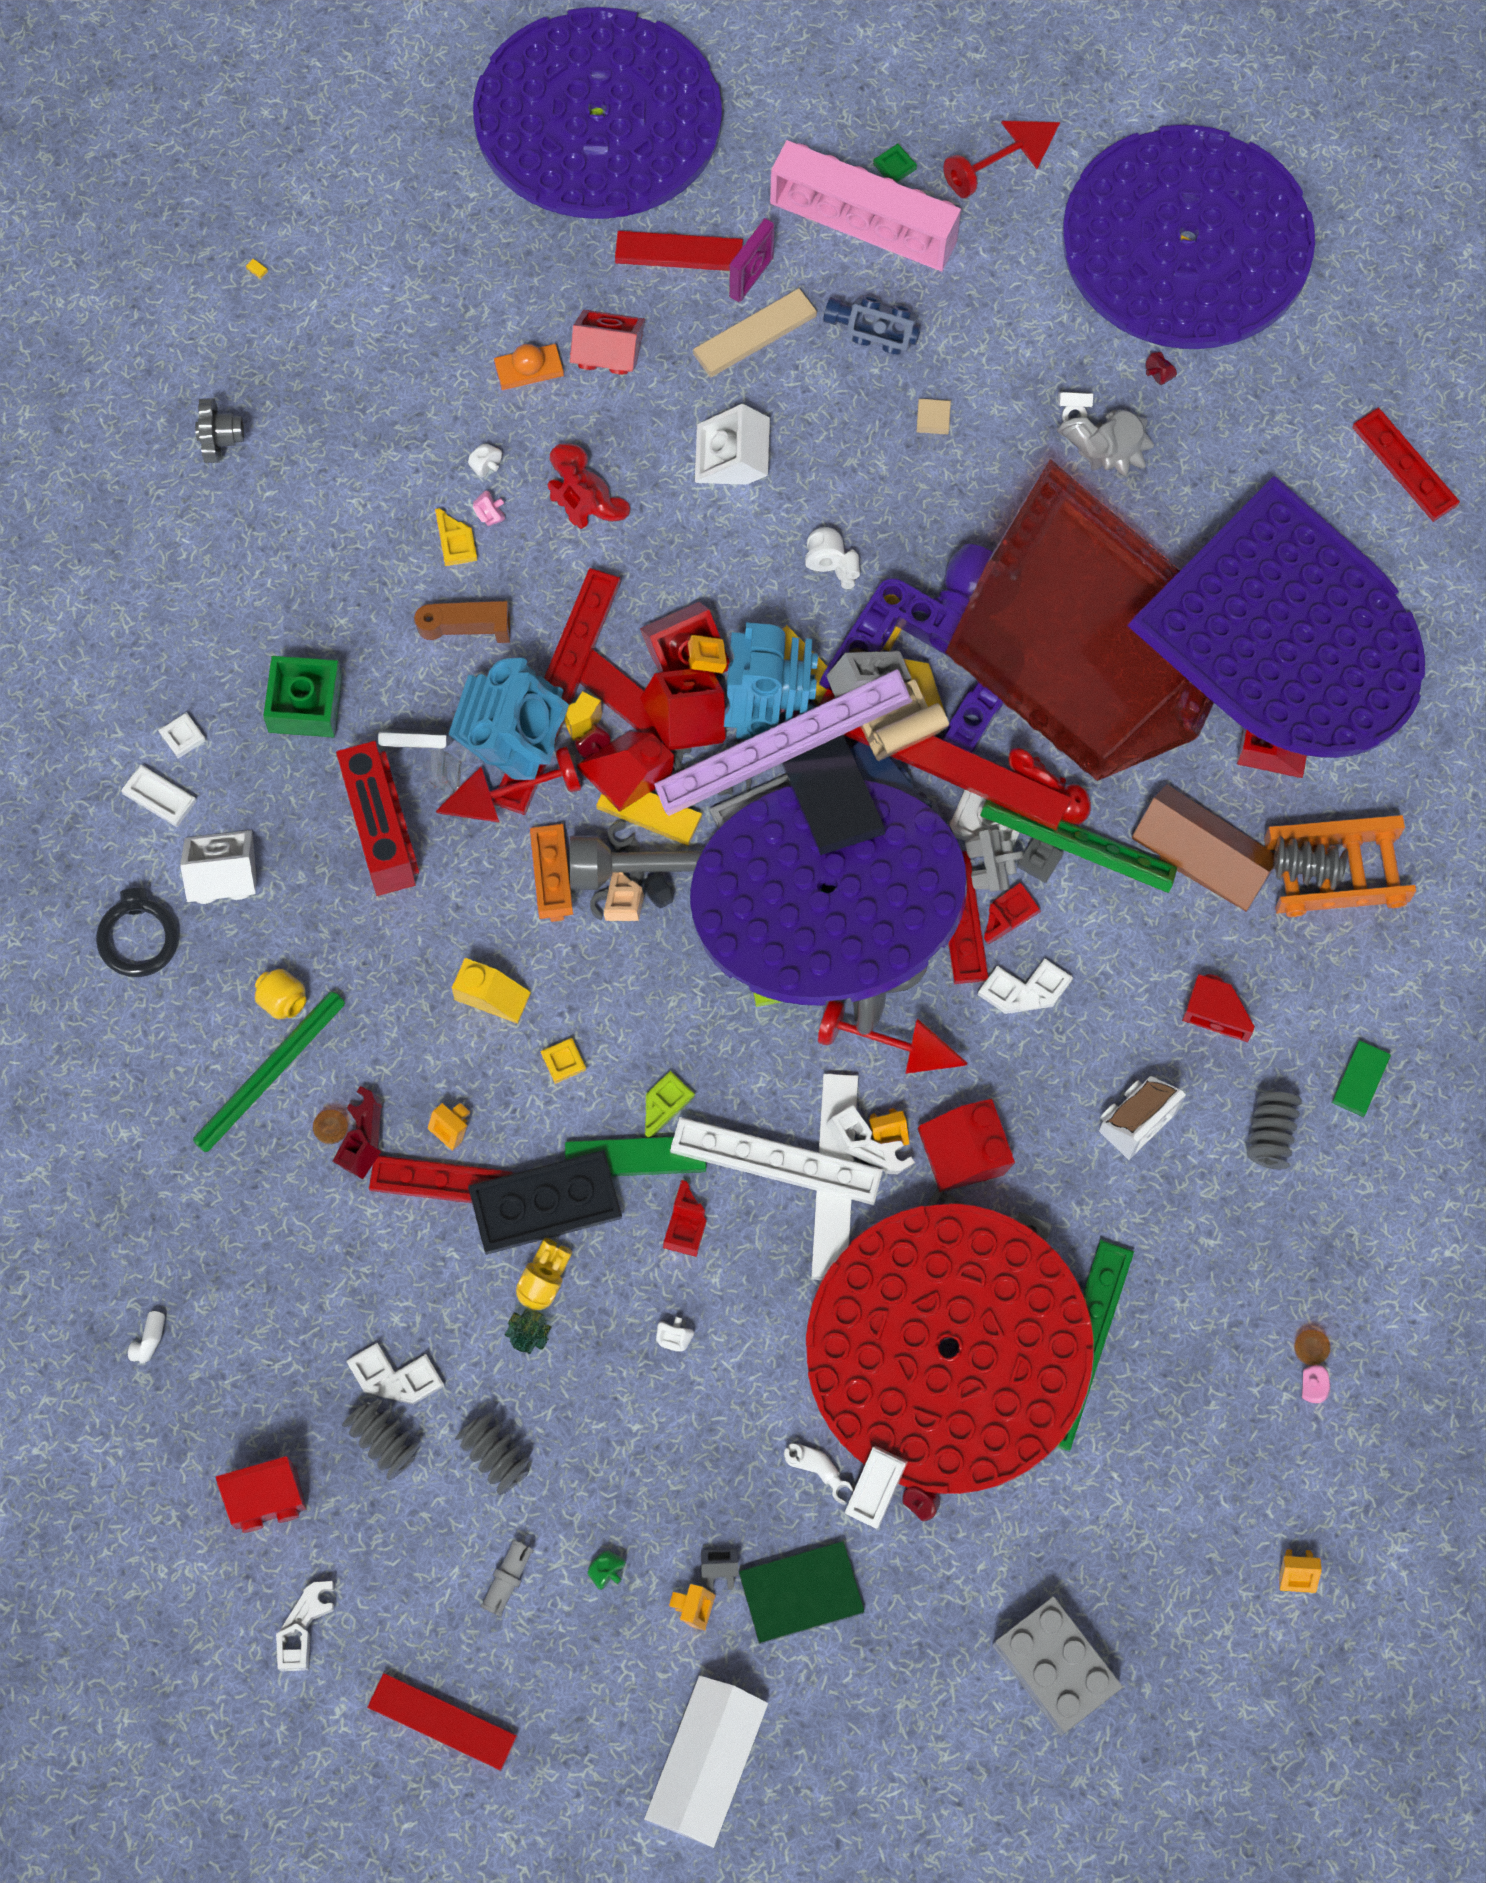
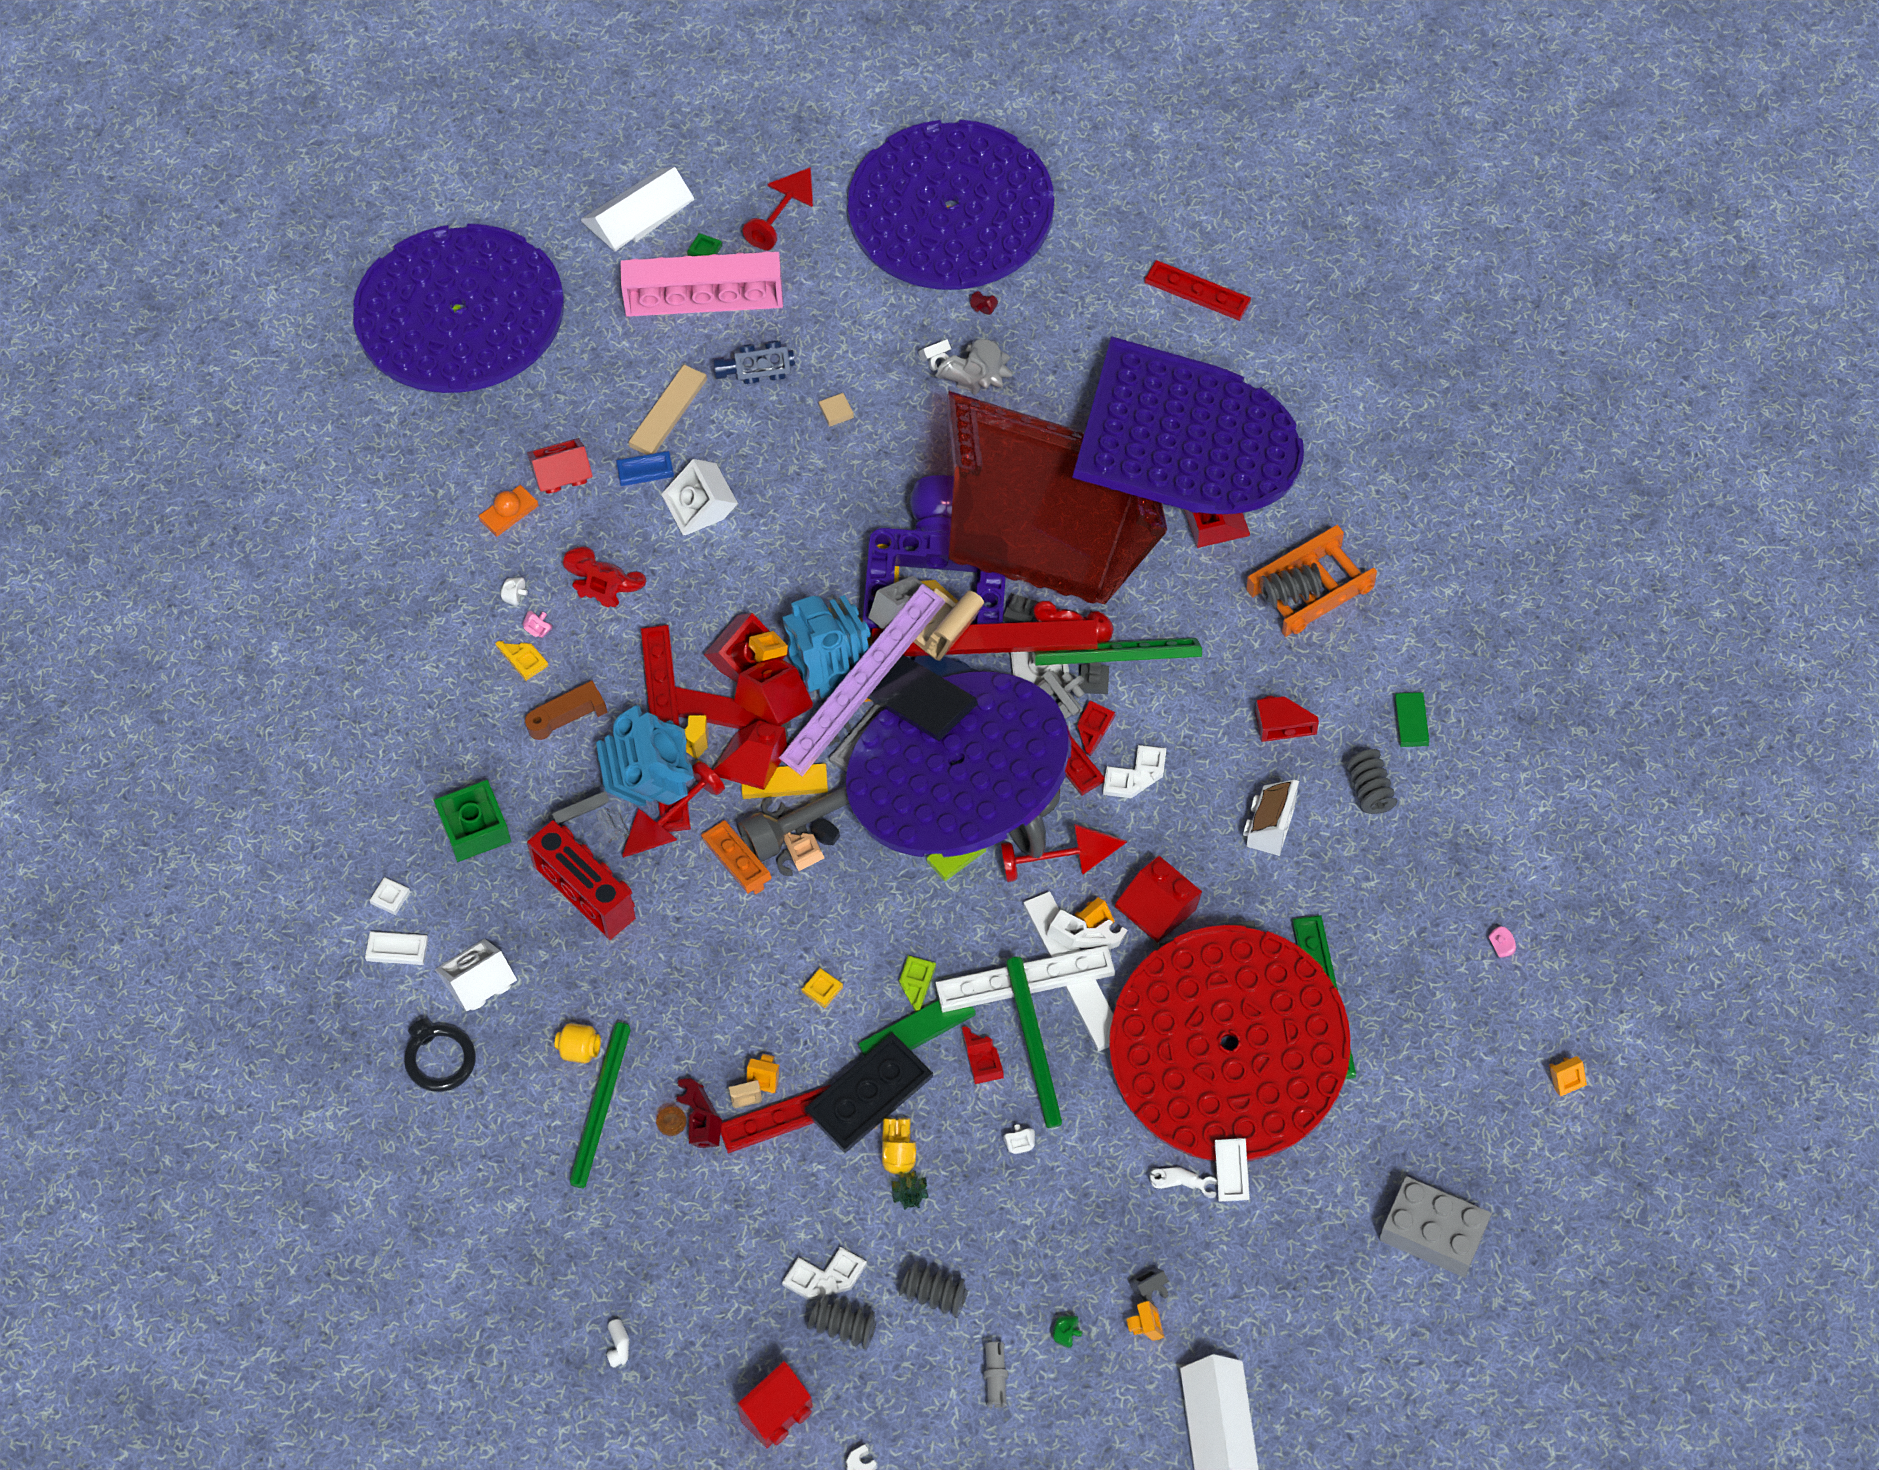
camera: 25 degrees left, 10 degrees down
(216, 430) = (293, 660): dark grey plant -> none
(256, 268) = (255, 535): yellow piece -> none
(418, 1137) = (745, 1094): none -> tan tile
(489, 991) = (738, 963): yellow slope -> none
(592, 741) = (713, 751): dark red piece -> none
(676, 250) = (576, 379): red tile -> none
(695, 387) = (645, 468): none -> blue tile
(745, 1237) = (1034, 1042): none -> green axle
(751, 260) = (639, 358): magenta tile -> none
(801, 1592) = (1219, 1273): dark green tile -> none
(828, 554) = (814, 538): white piece -> none
(849, 86) = (639, 208): none -> white slope
(921, 1503) = (1270, 1165): dark red piece -> none
(1002, 741) = (1019, 610): none -> dark grey tile
(1204, 847) = (1209, 615): slope -> none
(1312, 1347) = (1485, 918): clear orange plate -> none

